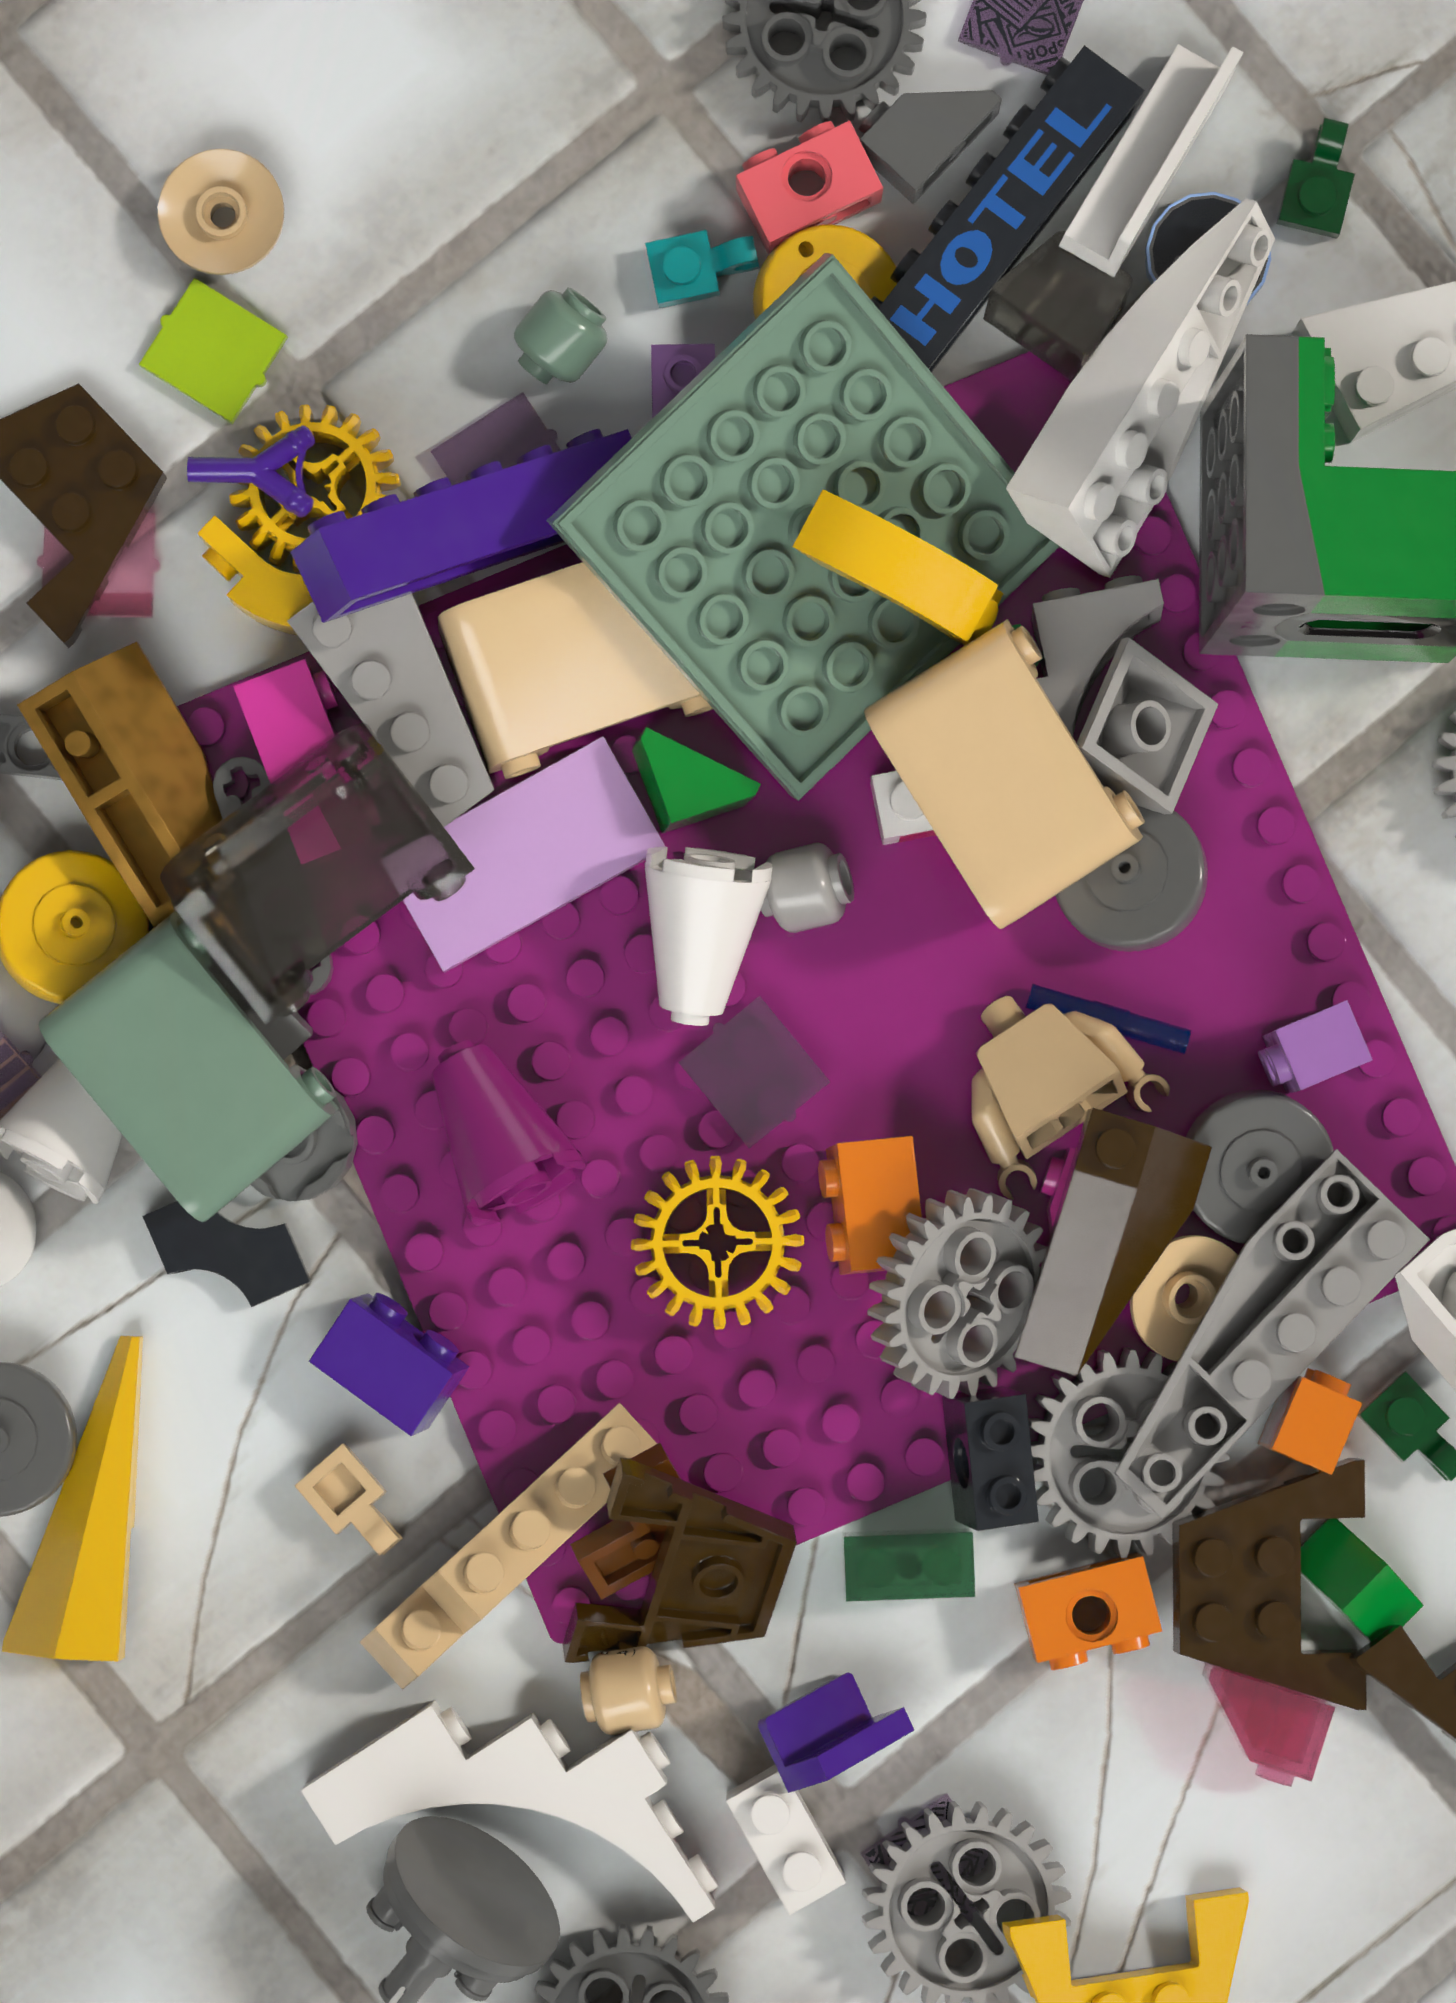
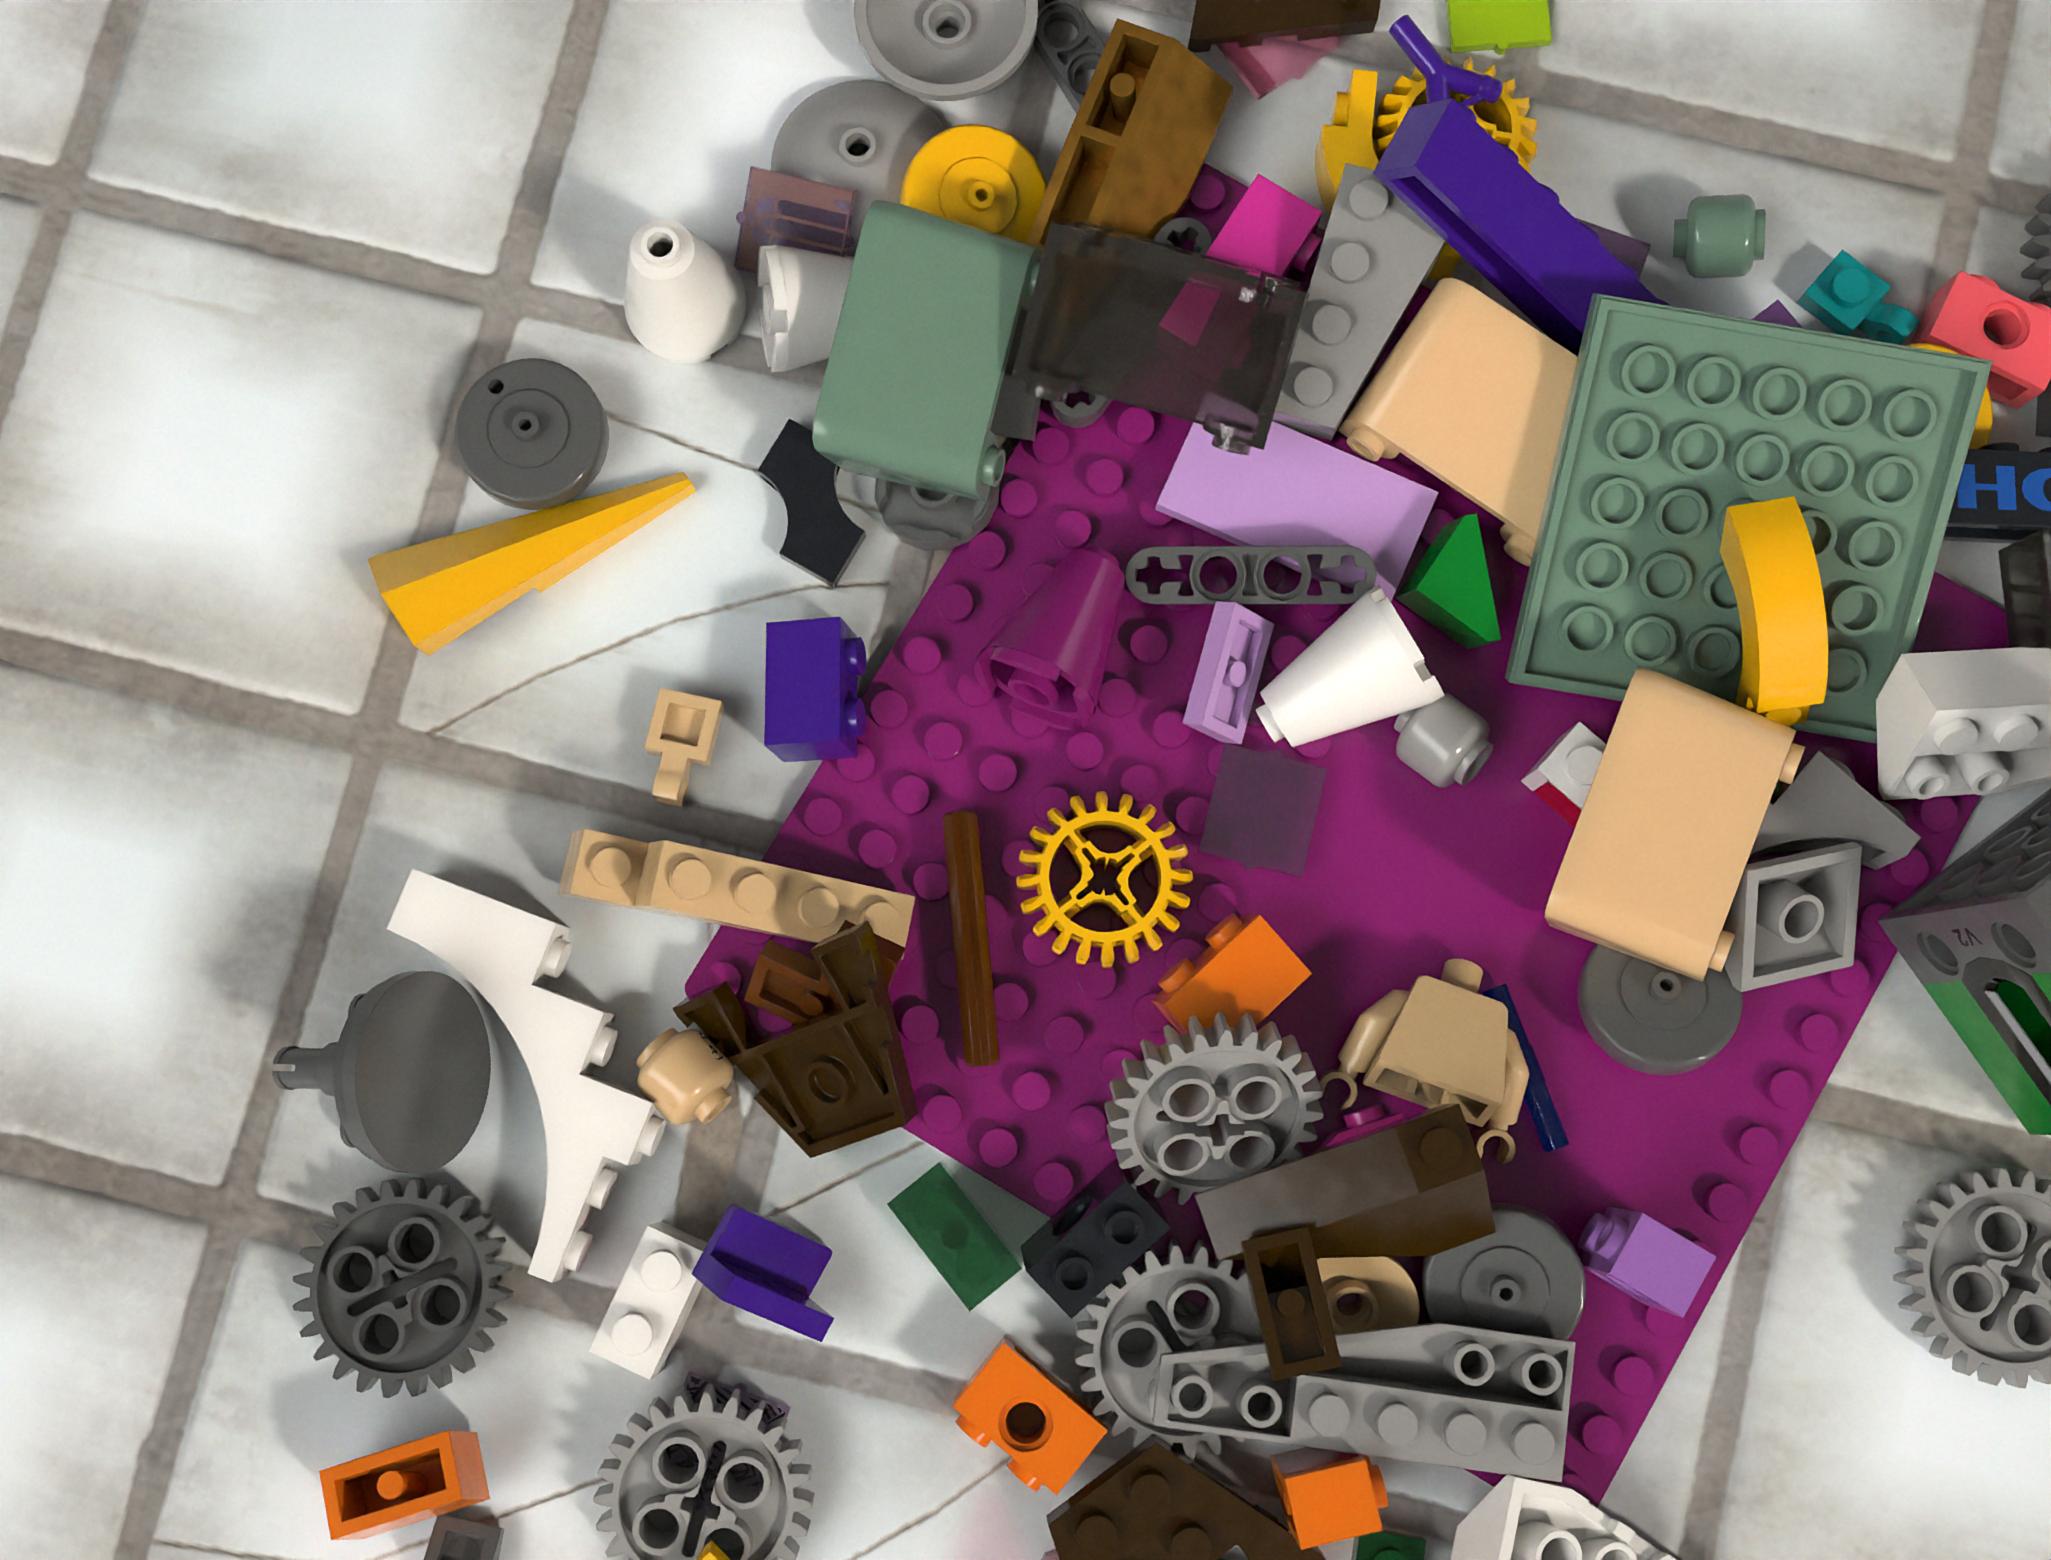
camera: 55 degrees right, 5 degrees down
(566, 946) = (1250, 567): none -> dark grey beam
(625, 1018) = (1228, 672): none -> lavender plate
(685, 1382) = (971, 938): none -> reddish brown axle
(1147, 1347) = (1290, 1304): none -> dark brown slope

